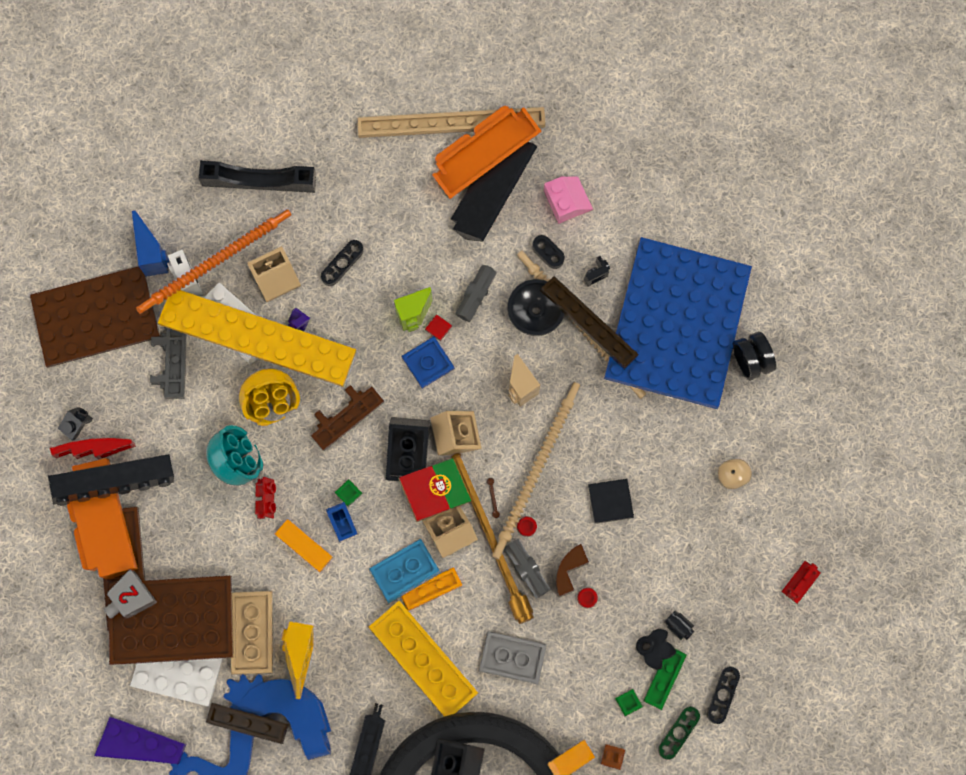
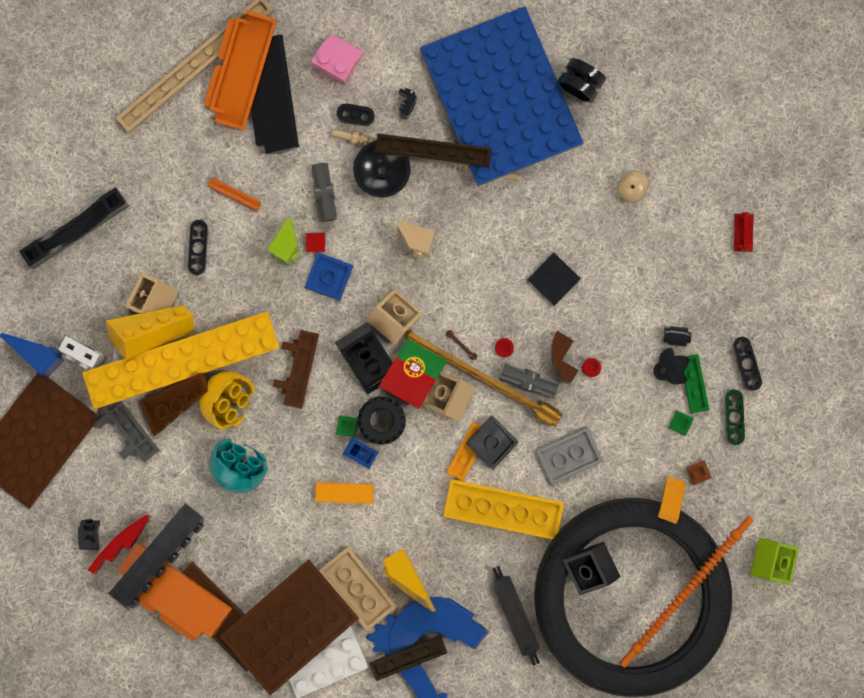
camera: 40 degrees left, 10 degrees up
(129, 596) = (245, 634): light grey torso -> none
(157, 297) = (81, 390): orange hose -> none
(223, 365) = (172, 402): none -> reddish brown wing
(249, 294) = (149, 330): none -> yellow wedge
(266, 507) = (292, 486): red hinge -> none
(298, 320) = (202, 321): dark purple bracket -> none
(379, 525) = (369, 408): none -> black tyre
(403, 243) = (234, 194): none -> orange axle
(404, 570) = (437, 453): dark azure tile -> none
(456, 596) = (492, 442): none -> black tile
(505, 536) = (494, 368): tan hose -> none

